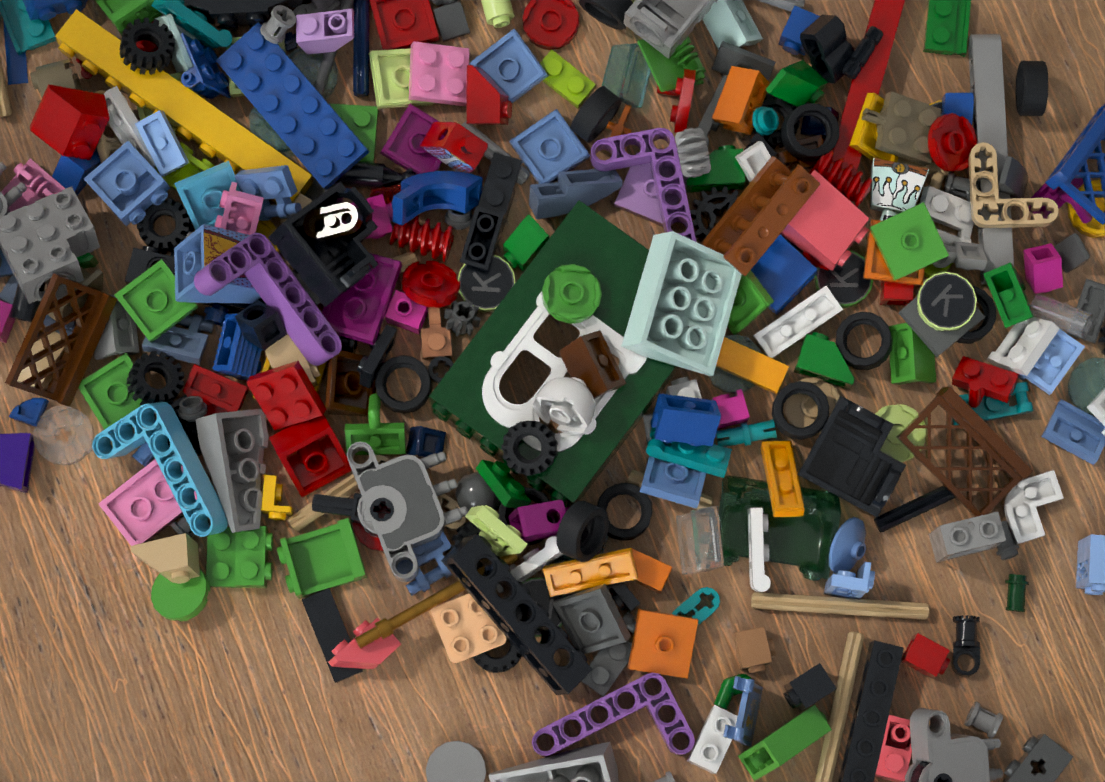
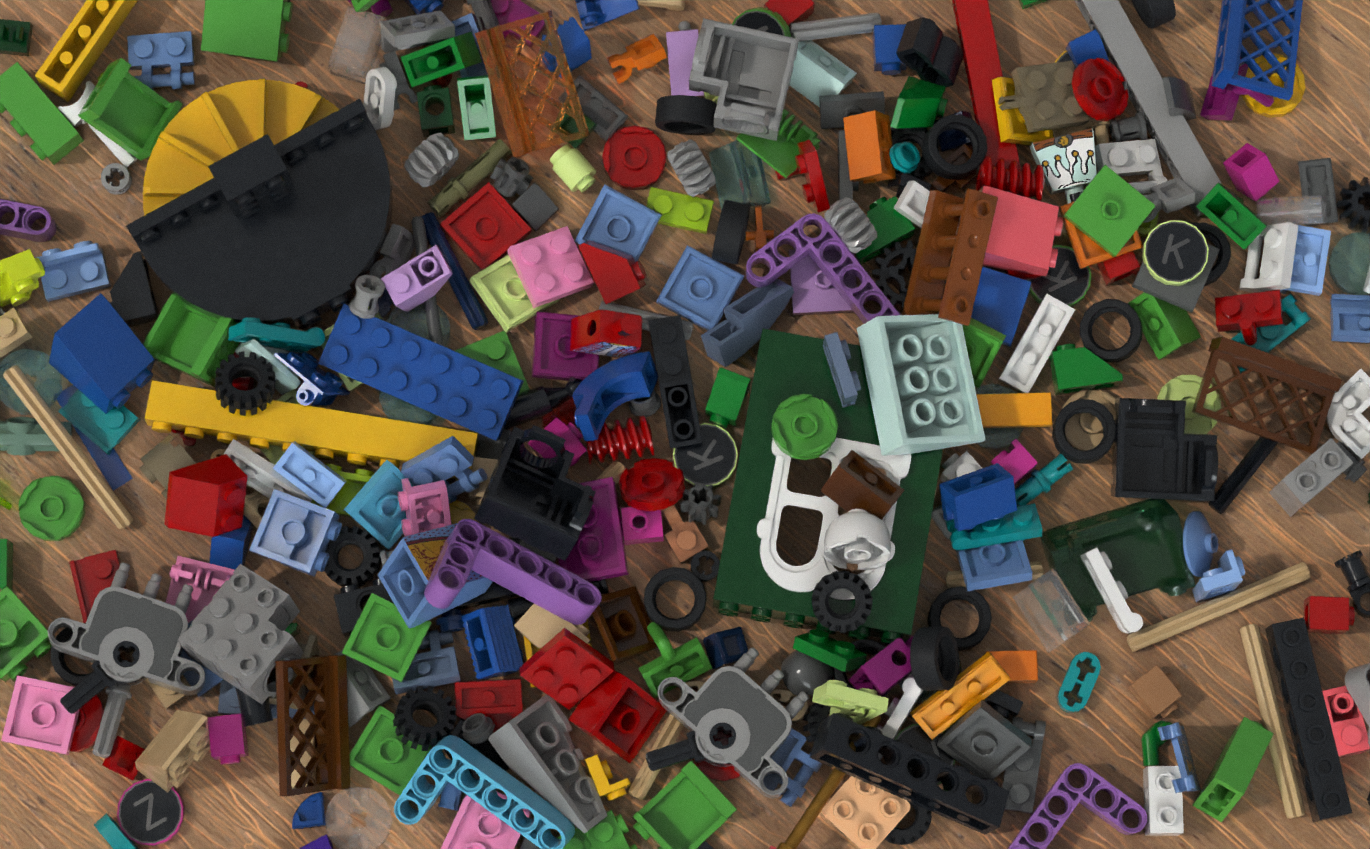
camera: 25 degrees left, 0 degrees up
(260, 325) = (507, 610): black brick -> none
(335, 221) = (531, 469): dark brown plate -> none
(380, 350) = (635, 595): black plate -> none
(590, 48) = (691, 168): none -> light grey gear
(624, 273) = (846, 382): none -> sand blue plate
(662, 643) = (1065, 731): orange plate -> none
(782, 479) = (1101, 508): light orange tile -> none
(808, 688) = (1230, 703): black brick -> none
(862, 52) = (966, 41): black axle -> none
(992, 201) = (1167, 127): tan beam -> none
(1072, 253) = (1271, 141): dark grey slope -> none

